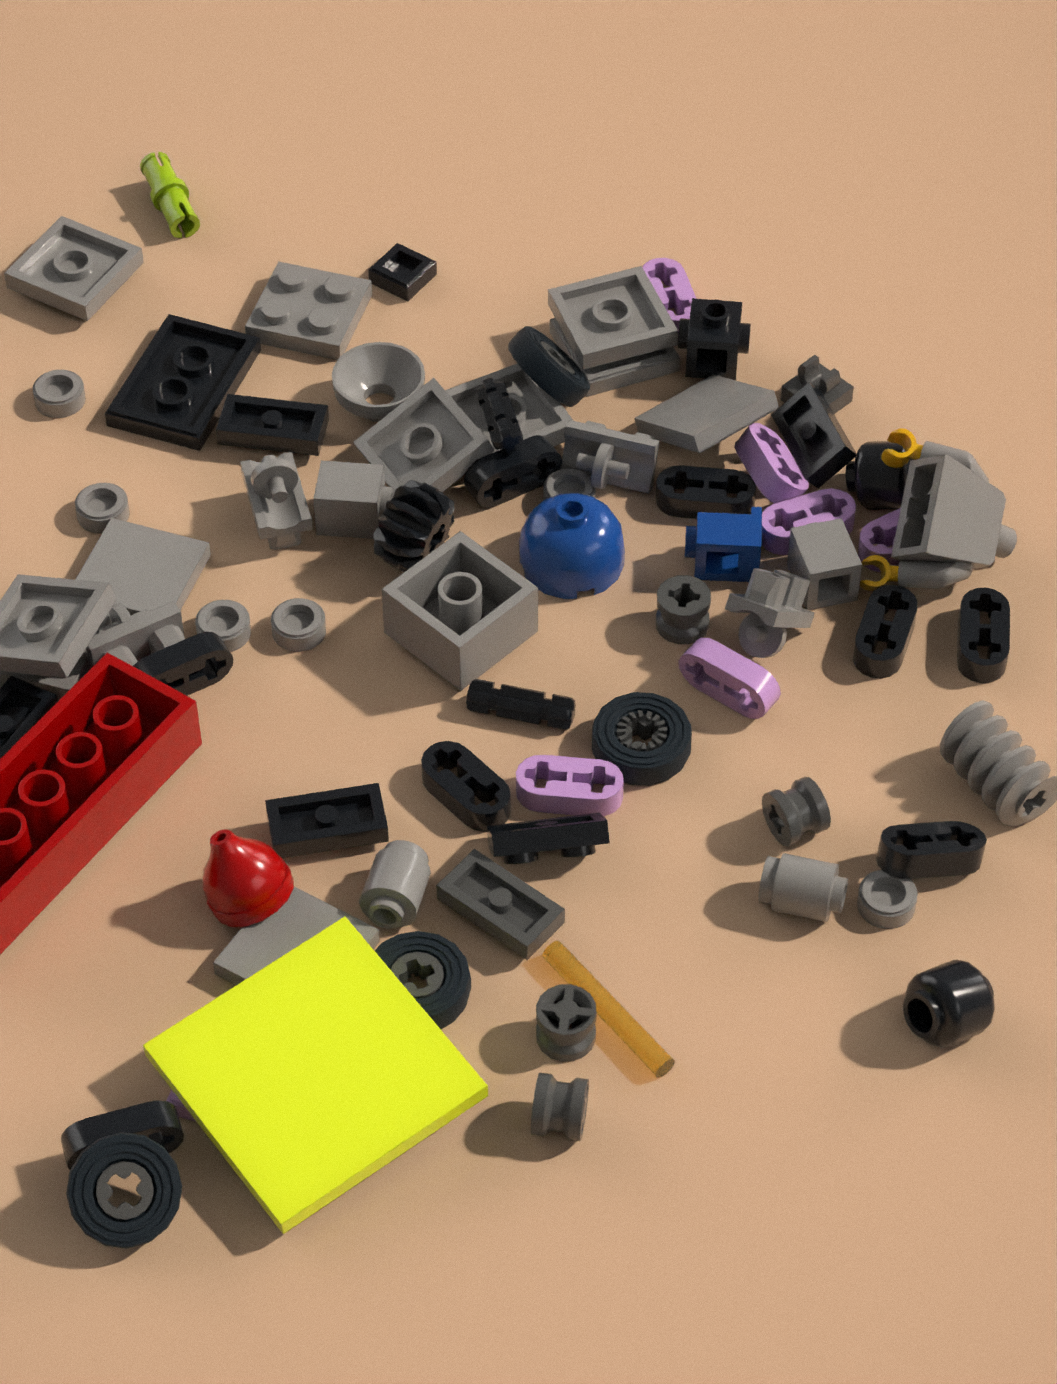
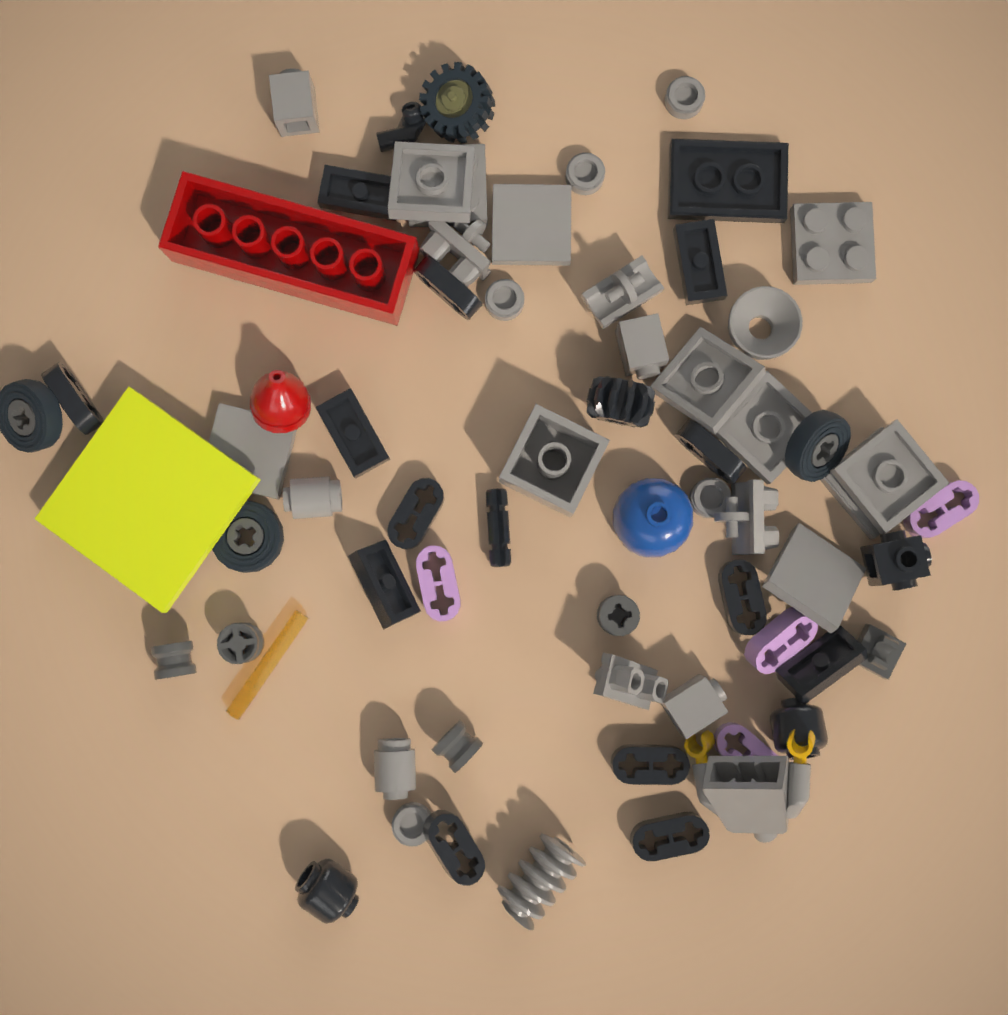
camera: 70 degrees right, 35 degrees up
(74, 268) = (811, 54): light grey plate -> none
(169, 195) = (917, 91): lime pin -> none
(298, 624) = (522, 350): light grey tile -> none
(402, 272) = (899, 297): black tile -> none
(499, 415) = (746, 427): black axle -> none
(500, 904) = (320, 570): dark grey plate -> none
(647, 717) = (473, 622): black bush -> none
(725, 545) = (688, 629): blue brick -> none
(729, 678) = (563, 667): lavender beam -> none
(802, 510) = (746, 673): lavender beam -> none

